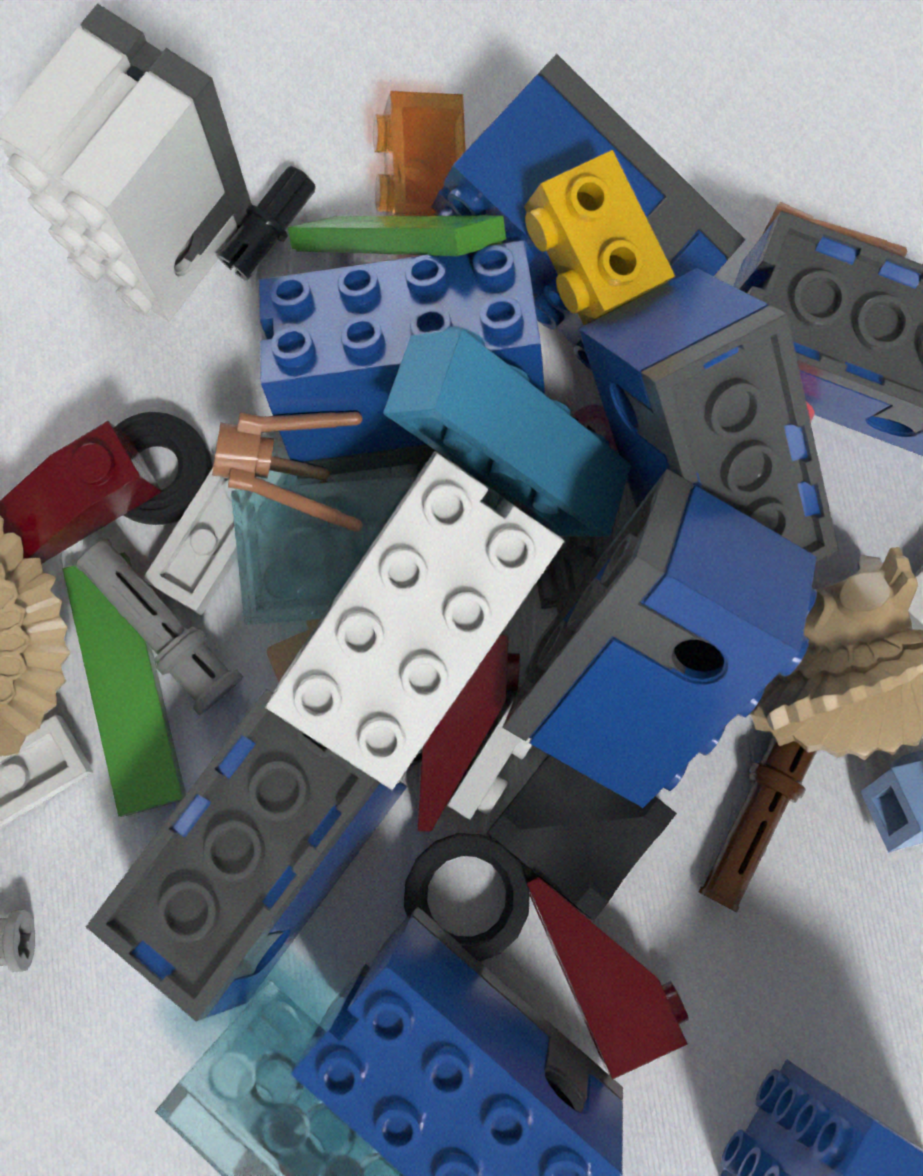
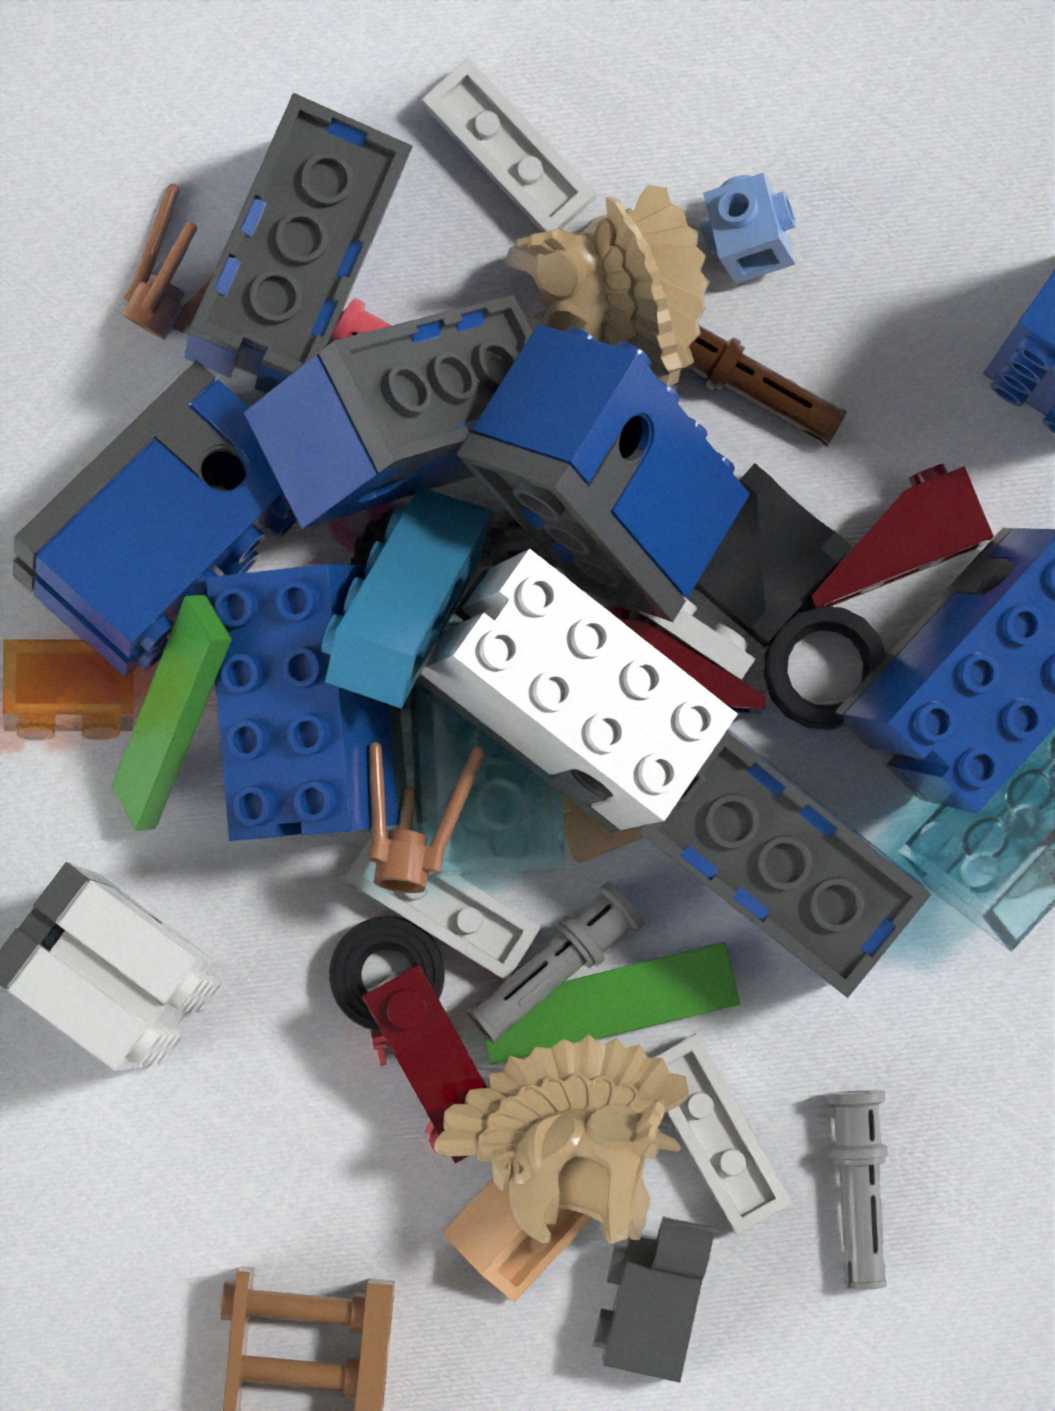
camera: 85 degrees left, 5 degrees up
(267, 222) = (120, 854): black axle -> none
(596, 238) = (215, 507): yellow brick -> none

